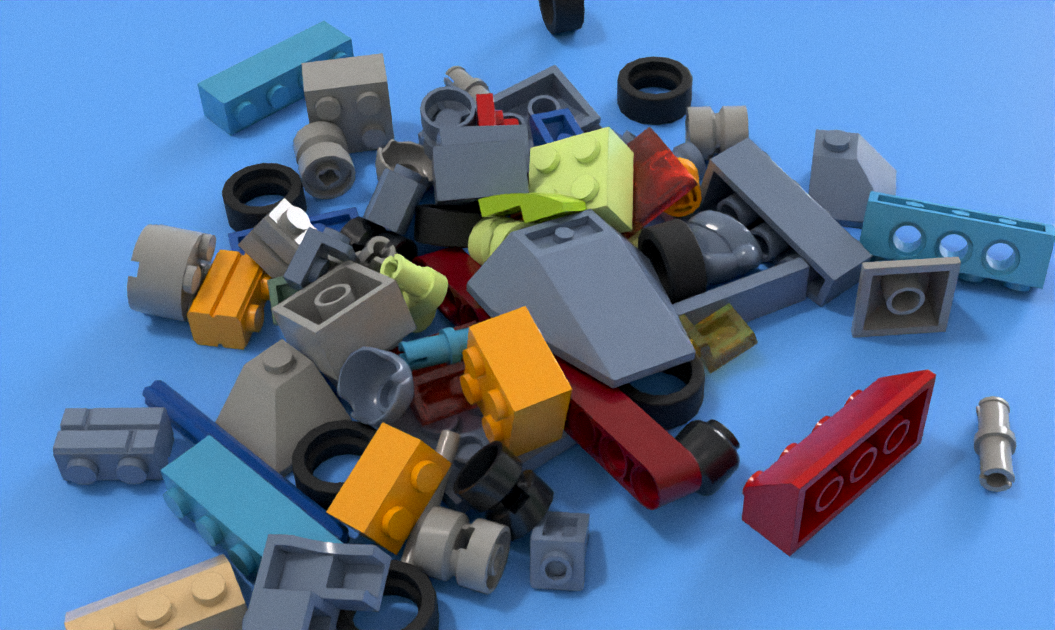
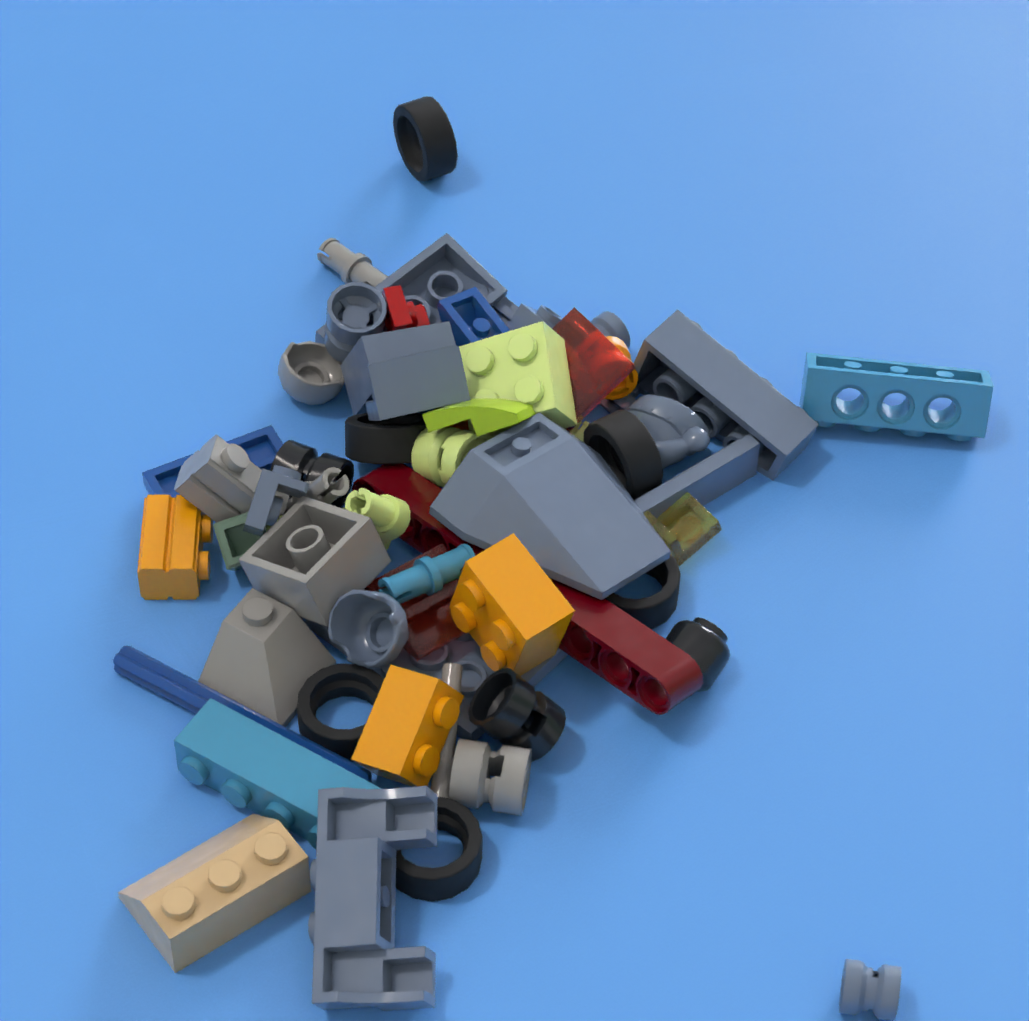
camera: 15 degrees left, 5 degrees up
(113, 444) = (106, 720): sand blue brick -> none
(169, 270) = (106, 526): light grey brick -> none
(256, 182) = (158, 402): black tyre -> none
(269, 79) = (128, 272): dark azure brick -> none
(323, 160) = (219, 372): light grey wheel -> none
(353, 97) = (230, 304): light grey brick -> none
(395, 199) = (322, 416): sand blue brick -> none
(559, 551) = (580, 765): sand blue bracket -> none
(650, 107) = (553, 224): black tyre -> none
(716, 131) = (638, 295): light grey wheel -> none
(838, 460) = (820, 640): red slope -> none
(845, 173) = (775, 333): sand blue slope -> none
(905, 296) = (857, 464): light grey slope -> none
(995, 444) = (960, 605): light grey pin -> none

